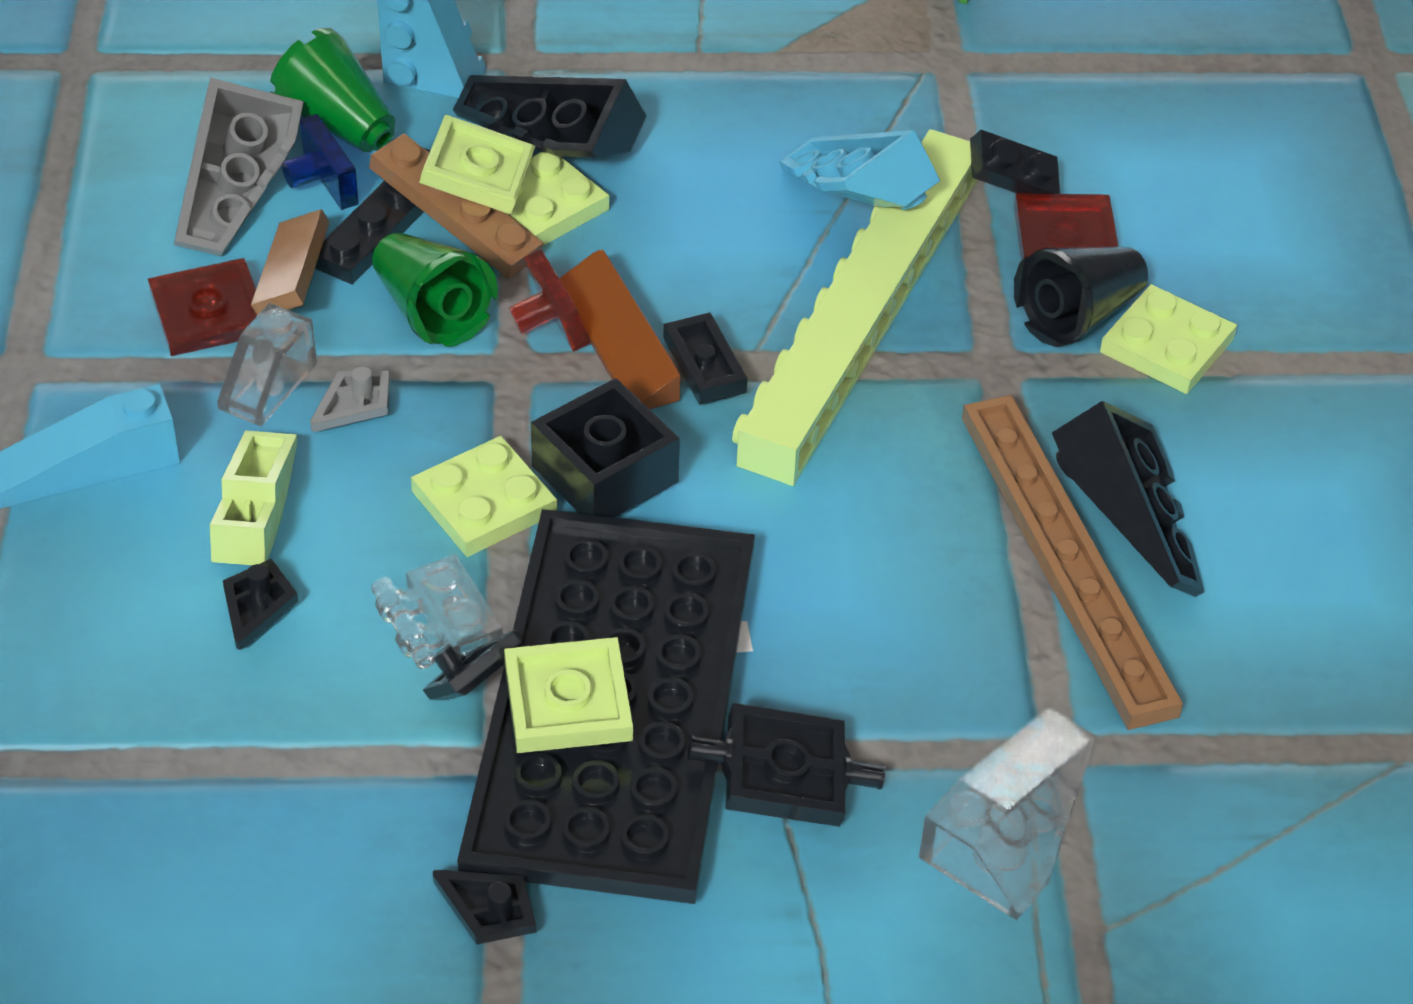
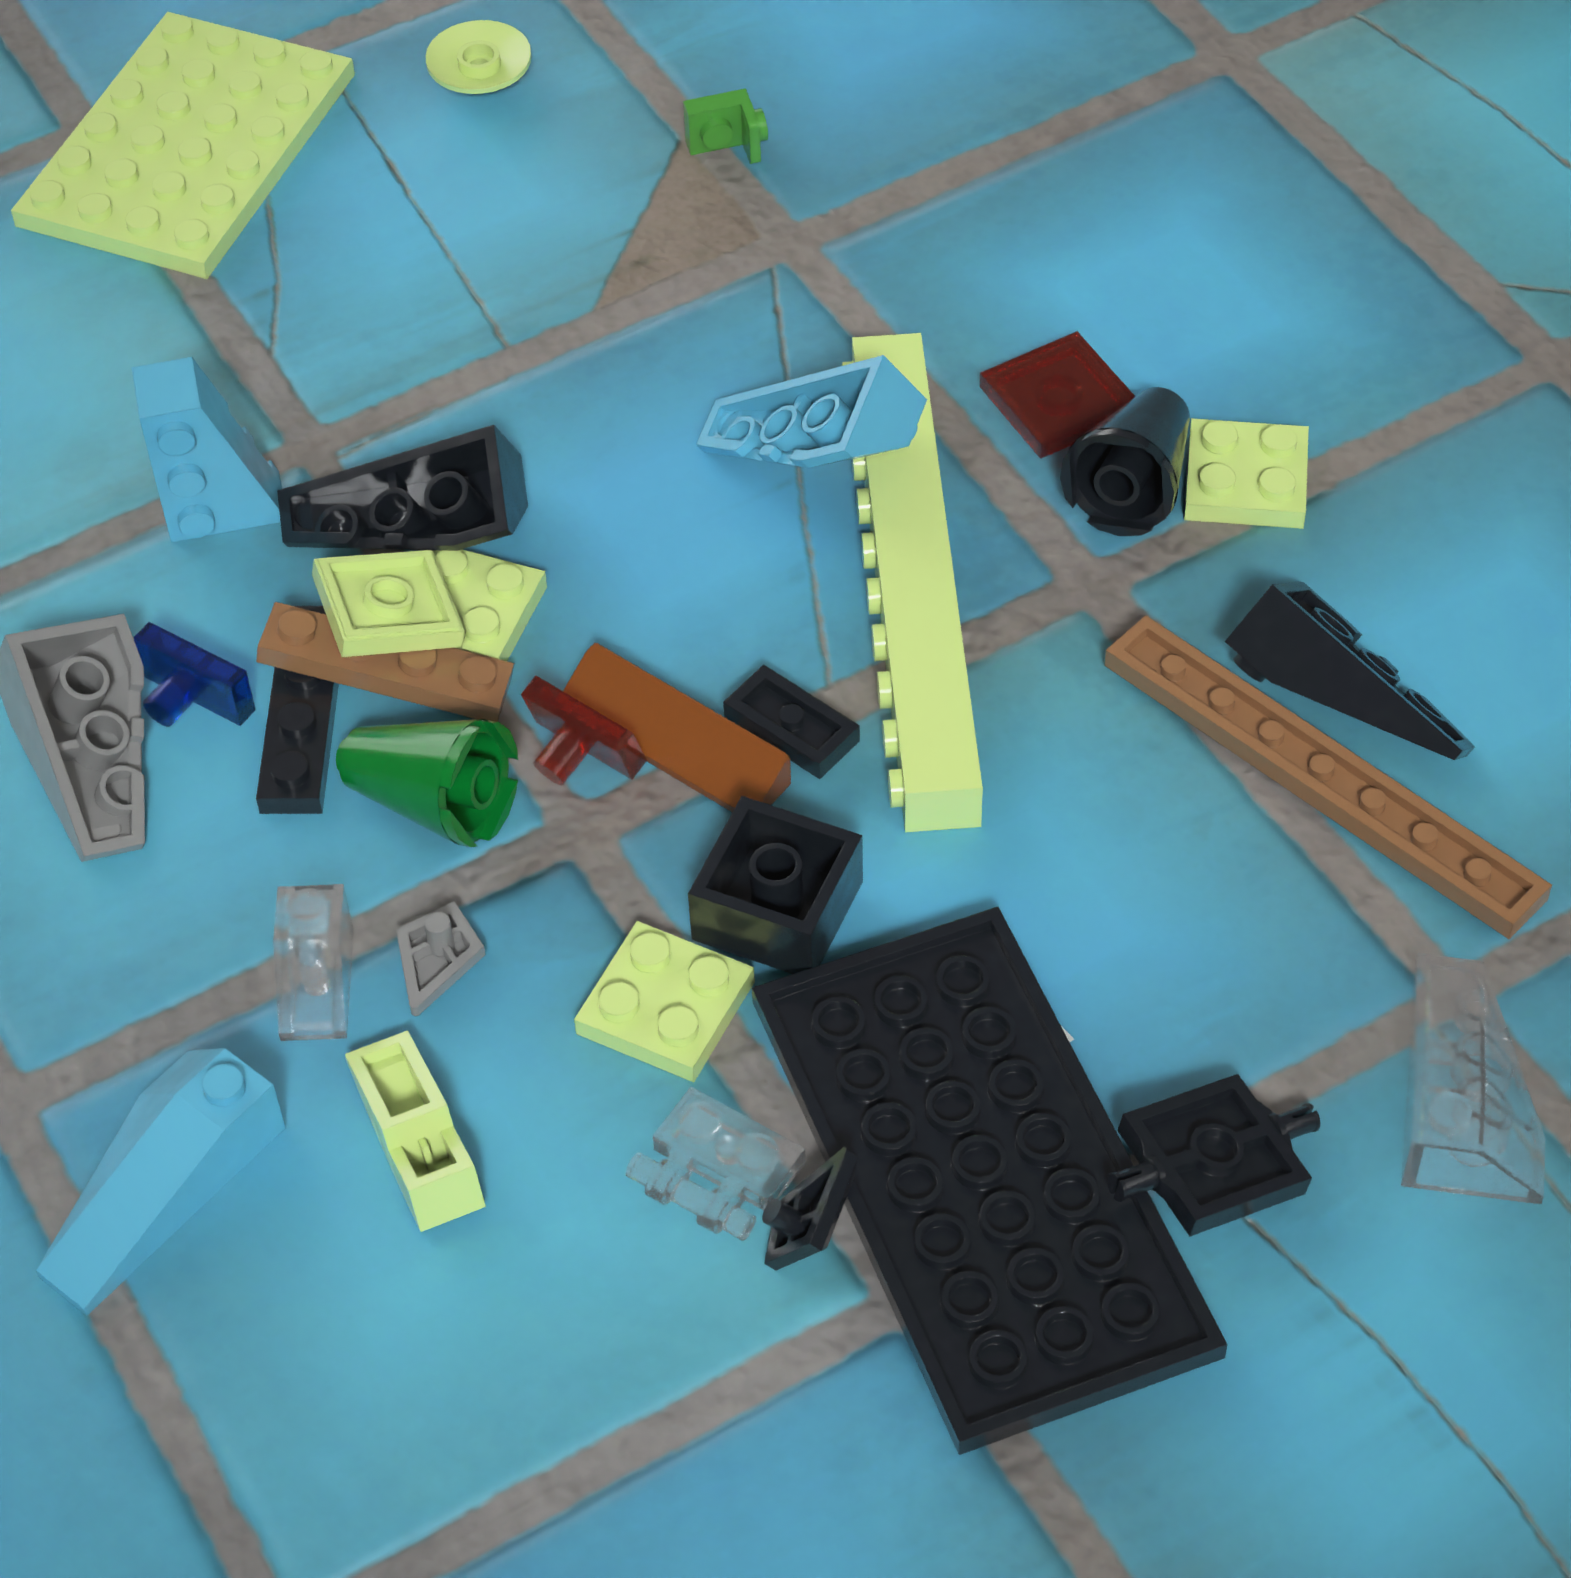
camera: 25 degrees left, 5 degrees up
(204, 305) = (178, 920): clear red tile -> none
(257, 600) = (507, 1252): black piece -> none
(291, 262) = (248, 823): medium nougat tile -> none
(335, 88) = (148, 582): green cone -> none
(487, 903) = (1017, 1473): black piece -> none
(568, 695) = (949, 1193): yellowish green plate -> none
(1013, 165) = (964, 342): black plate -> none

